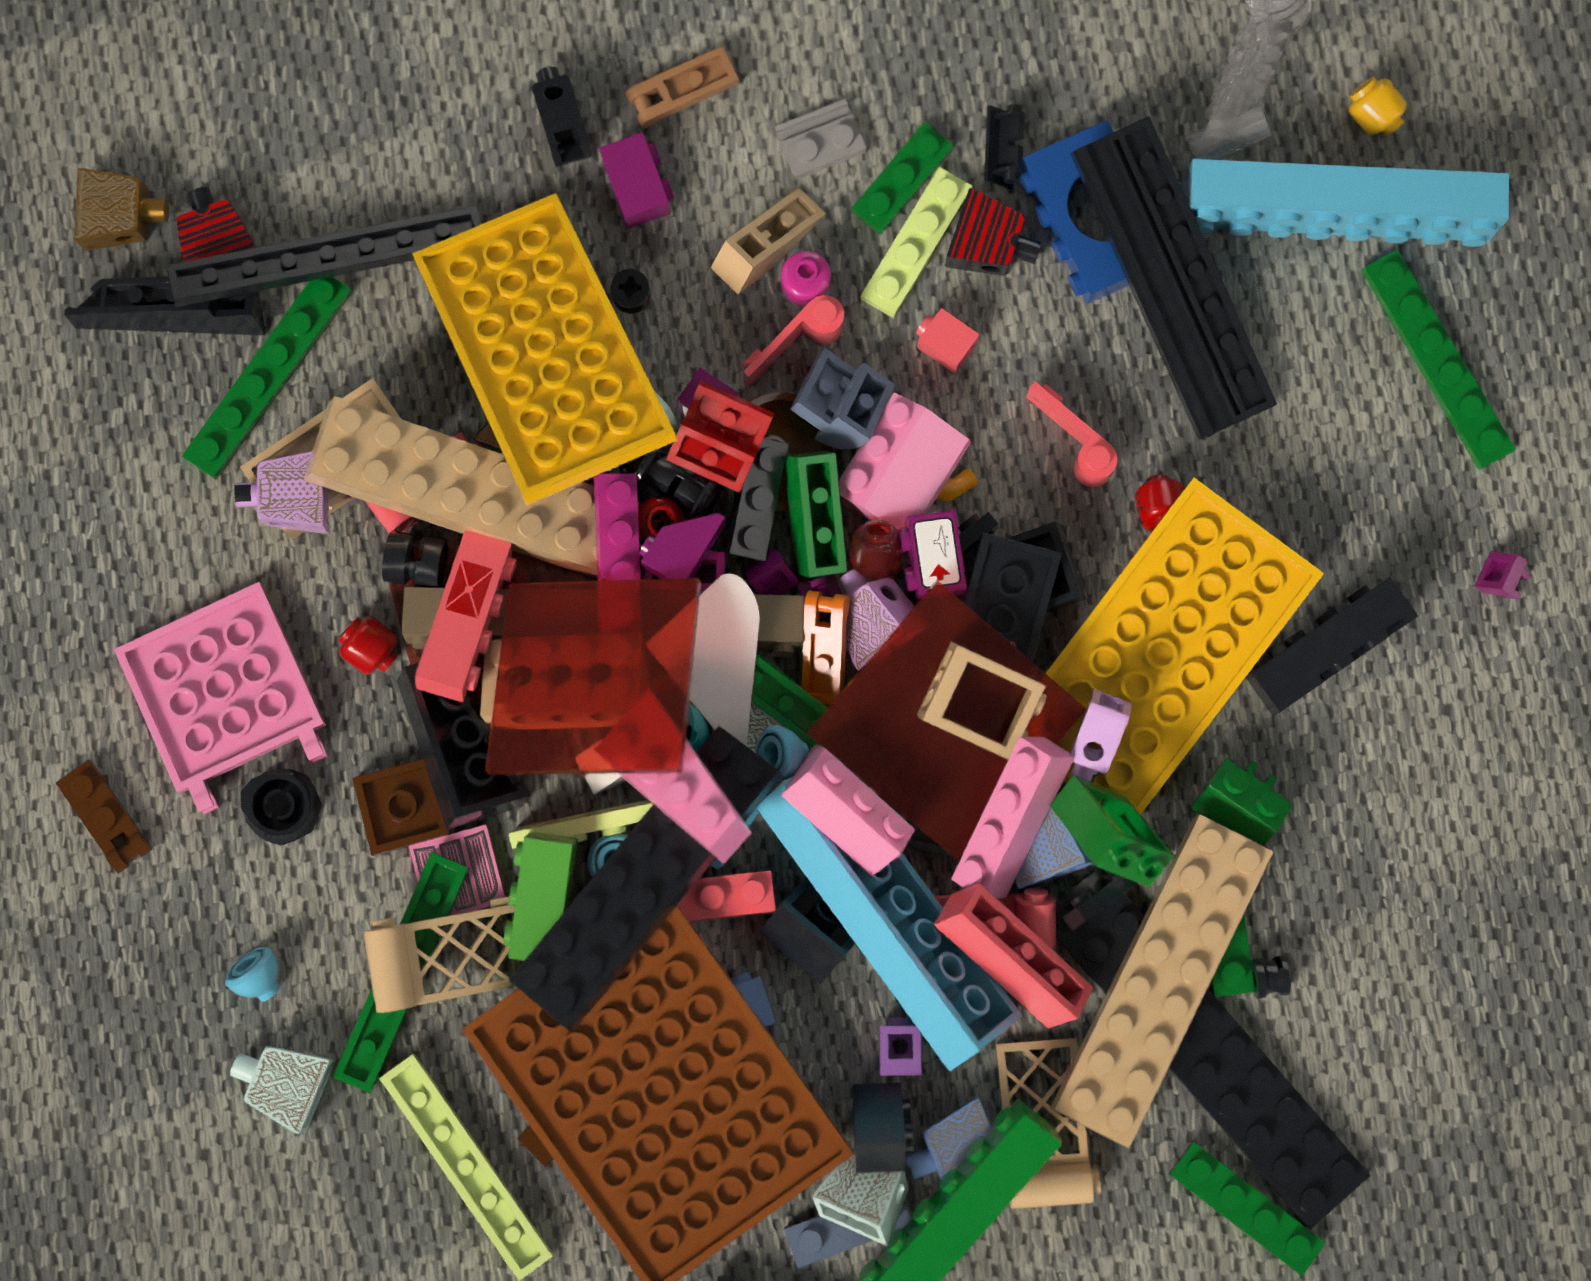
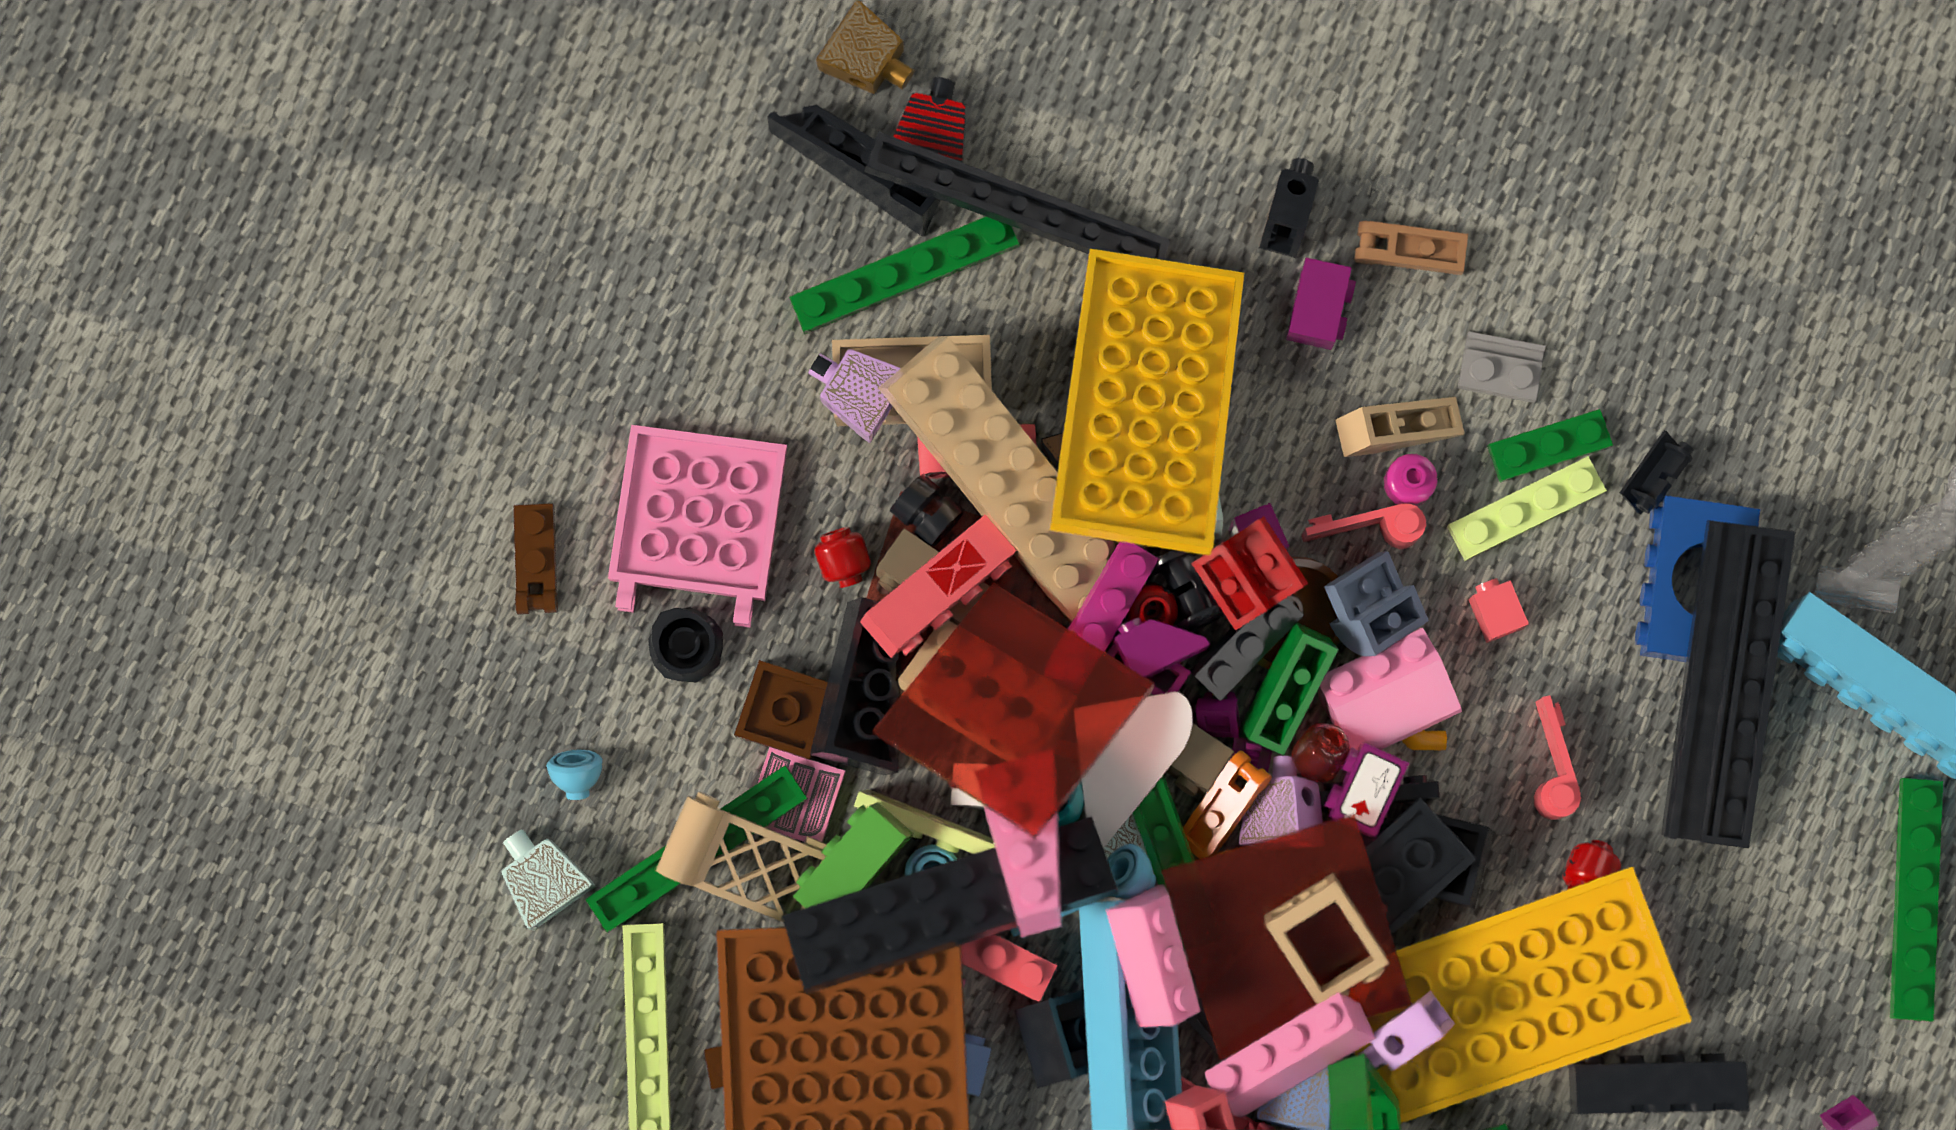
camera: 35 degrees right, 0 degrees up
(630, 300) = (1250, 403): black wheel -> none
(989, 237) = (1592, 545): torso -> none

